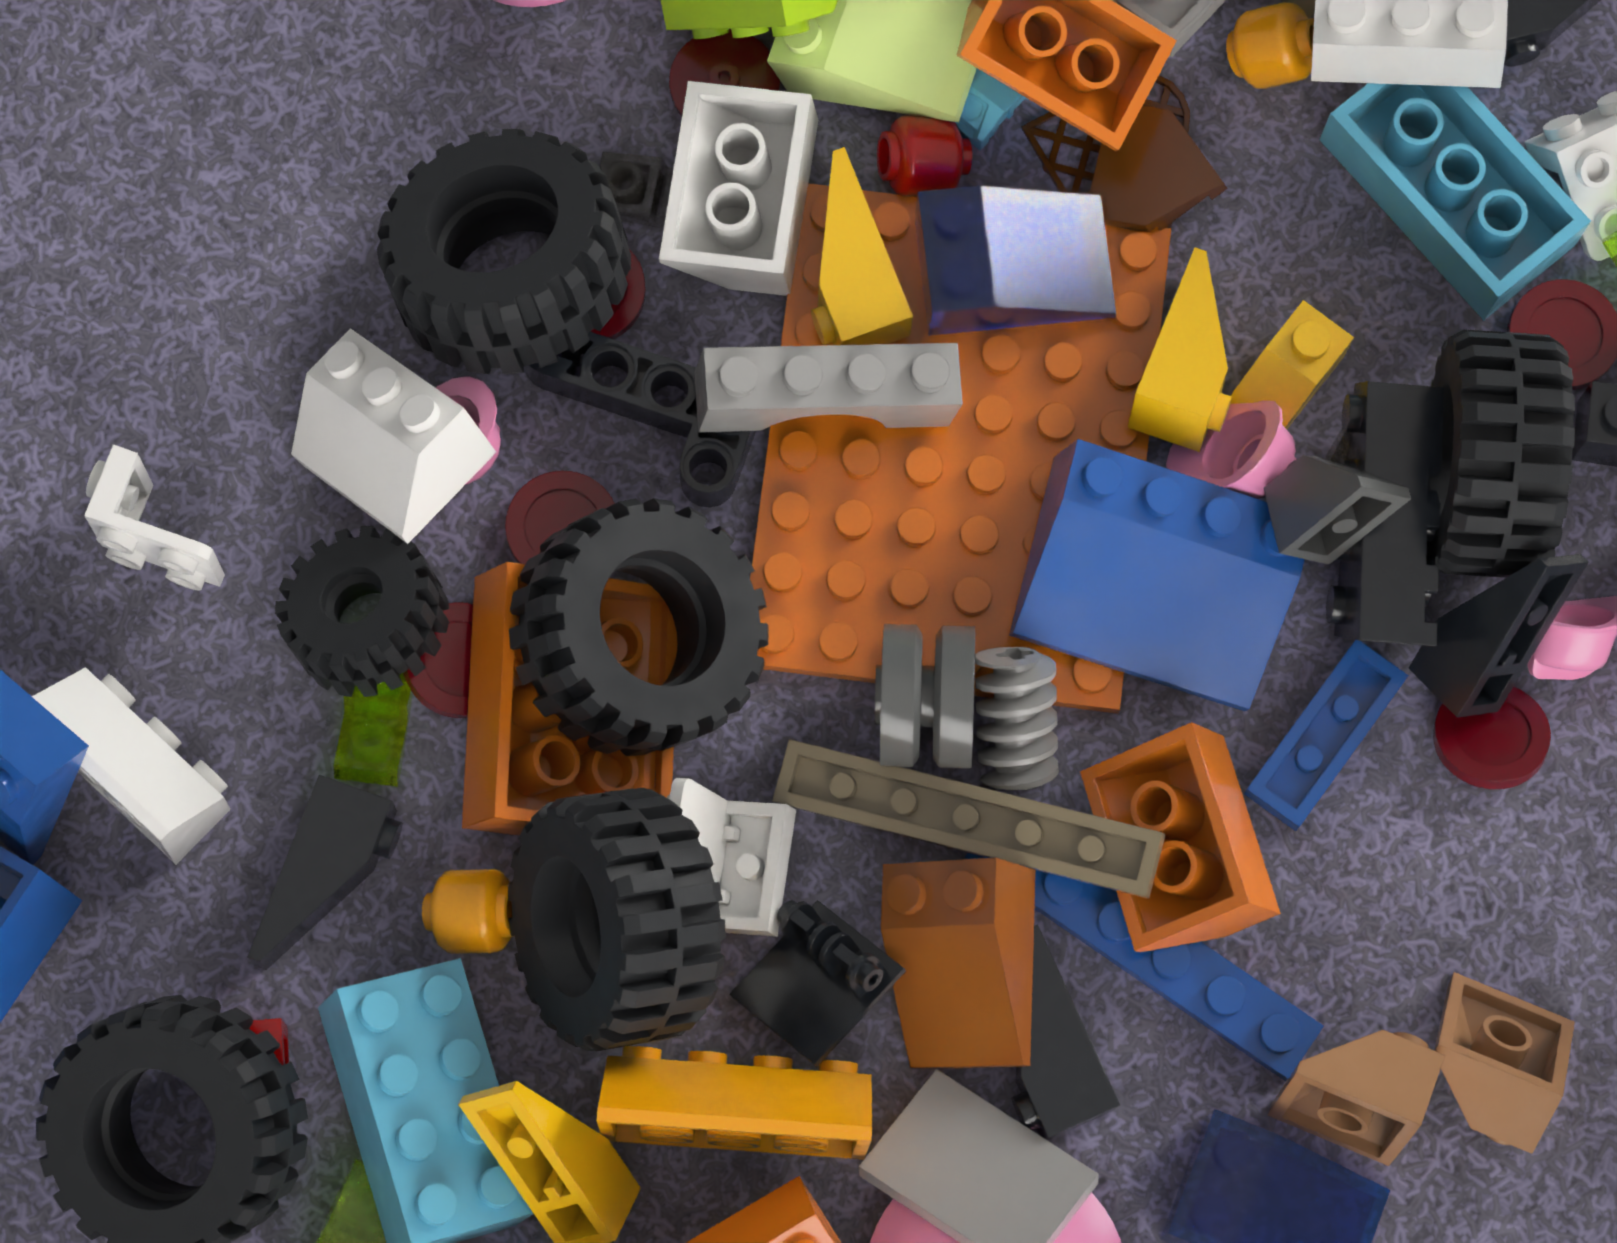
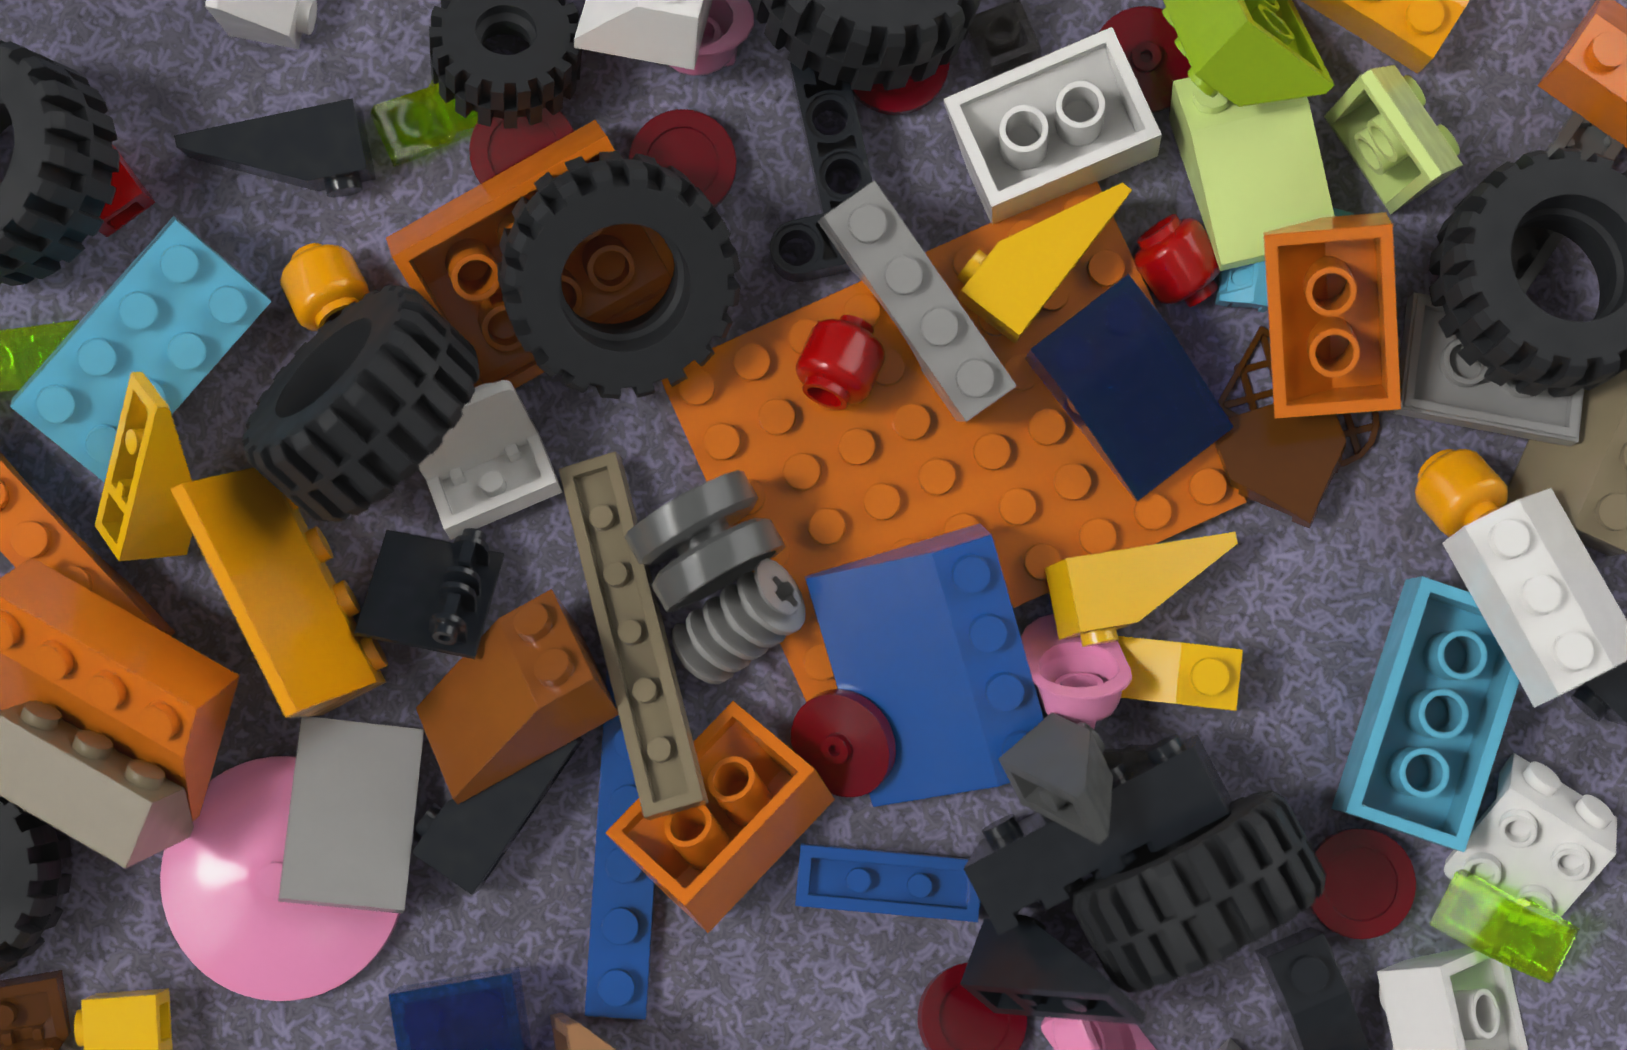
camera: 65 degrees right, 10 degrees up
(836, 487) = (840, 362): none -> red head
(1176, 687) = (844, 741): none -> dark red piece

